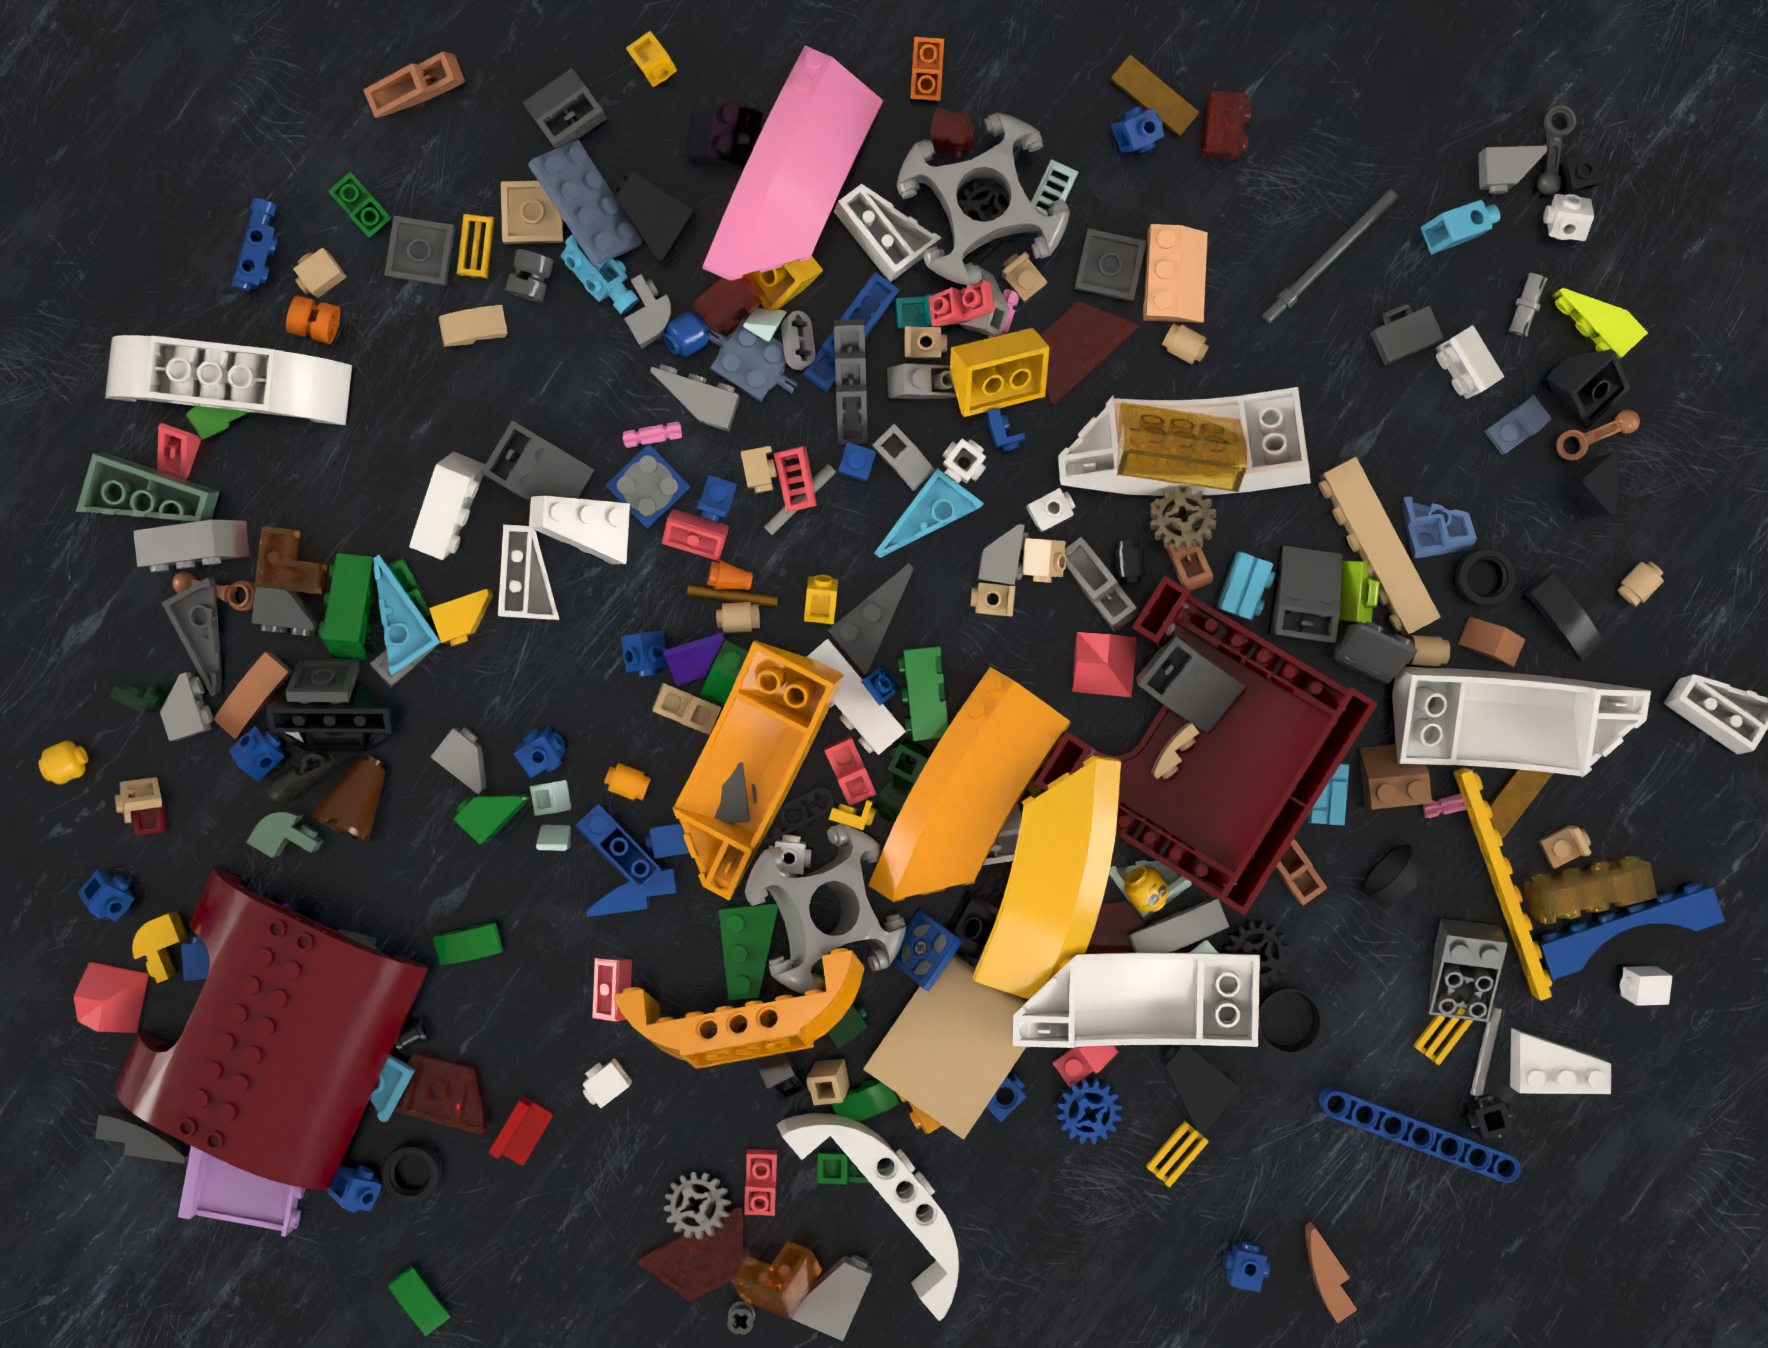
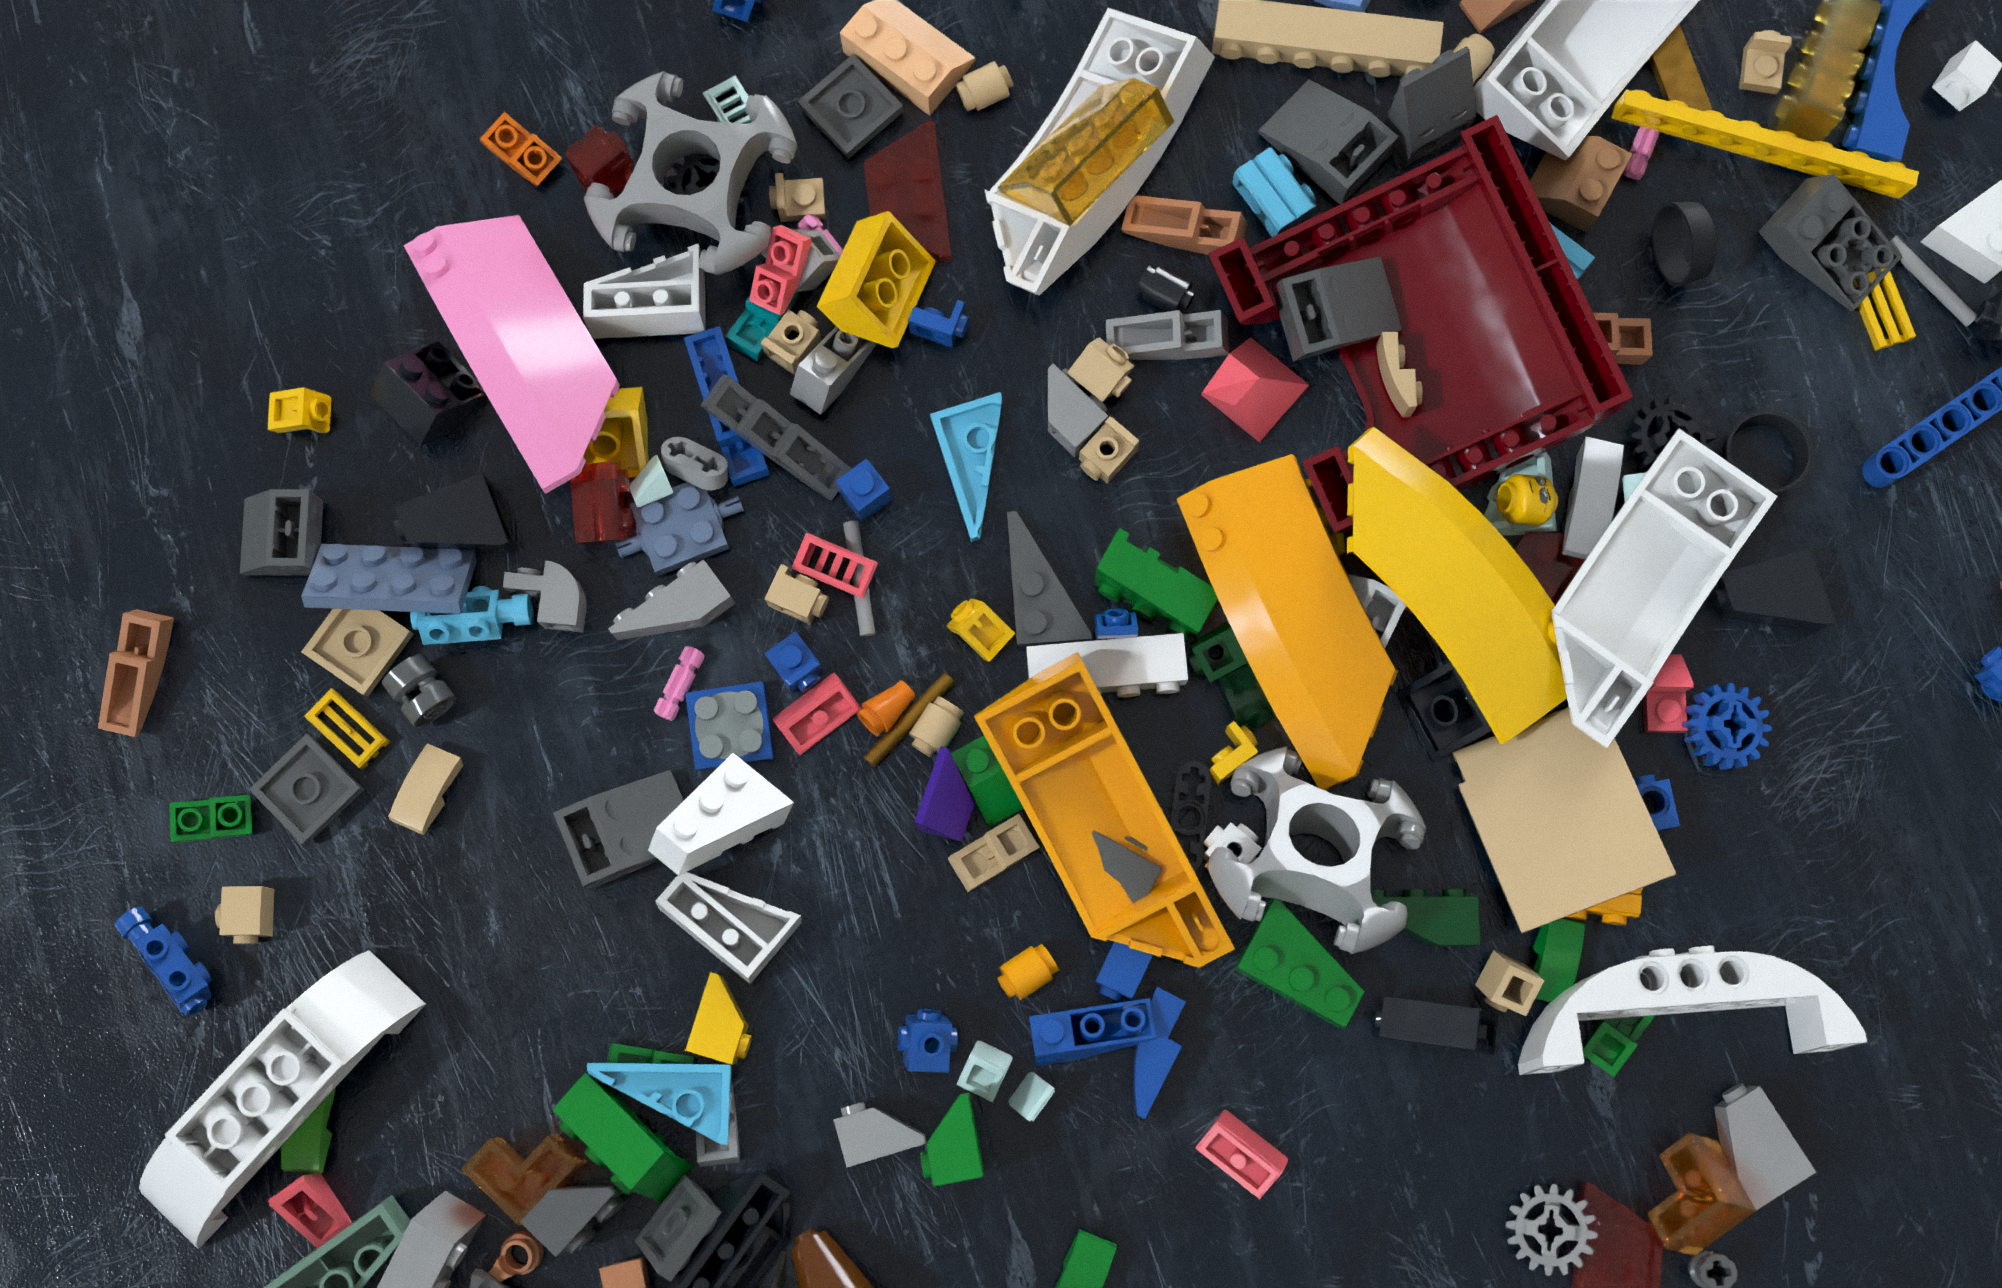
camera: 50 degrees left, 10 degrees down
(317, 320) = (284, 958): orange wheel -> none
(447, 505) = (592, 953): white wedge -> none
(605, 1082) = (1343, 1235): white brick -> none
(644, 652) = (902, 851): blue brick -> none
(686, 334) = (602, 572): blue head -> none
(750, 1030) = (1421, 957): light orange slope -> none
(760, 1182) = (1571, 1140): coral slope -> none
(850, 770) = (1182, 726): coral slope -> none
(903, 457) = (893, 439): light grey slope -> none
(926, 949) = (1435, 775): blue piece -> none
(969, 450) = (942, 368): white brick -> none
(1051, 509) = (1056, 331): white brick -> none
(1184, 1163) = (1849, 664): yellow tile -> none
(1193, 515) = (1162, 200): dark tan gear -> none
(1358, 592) = (1360, 84): lime piece -> none

